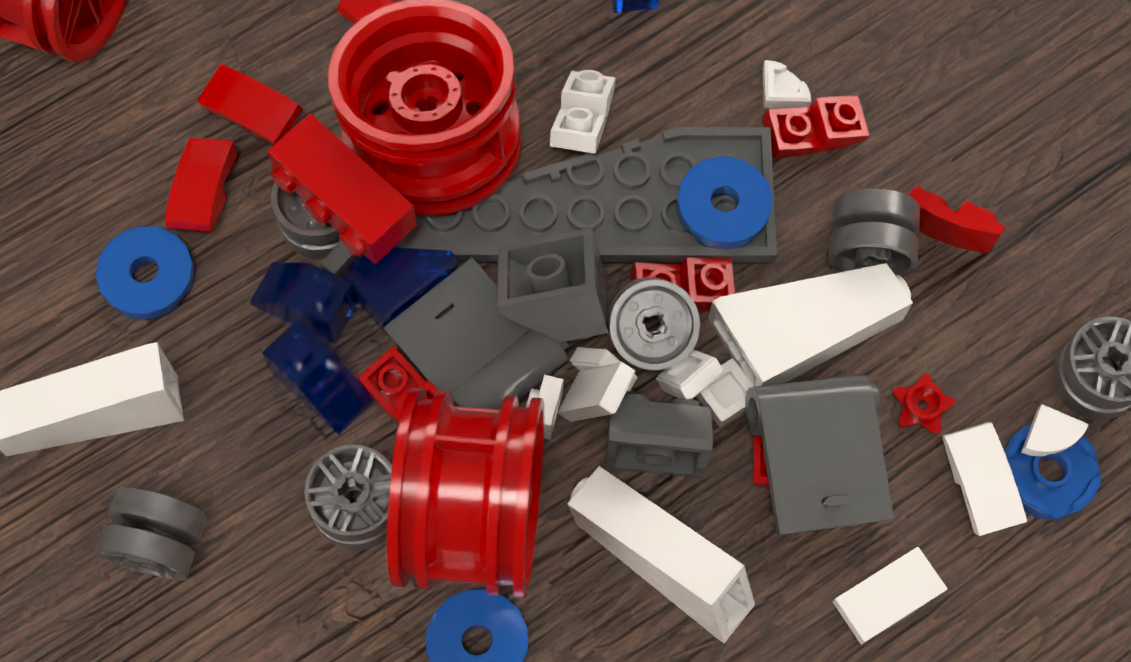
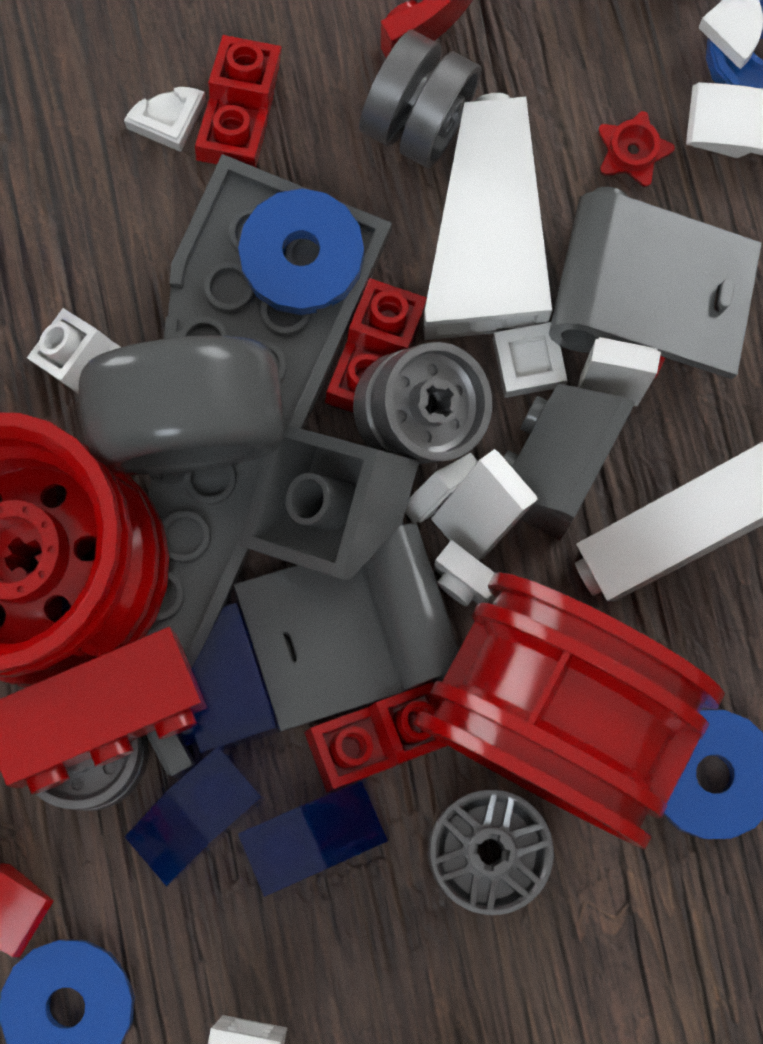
camera: 65 degrees left, 10 degrees up
(568, 155) = (181, 404): none -> dark grey wheel
(690, 375) = (508, 388): white tile -> none
(739, 444) = (620, 369): none -> white tile

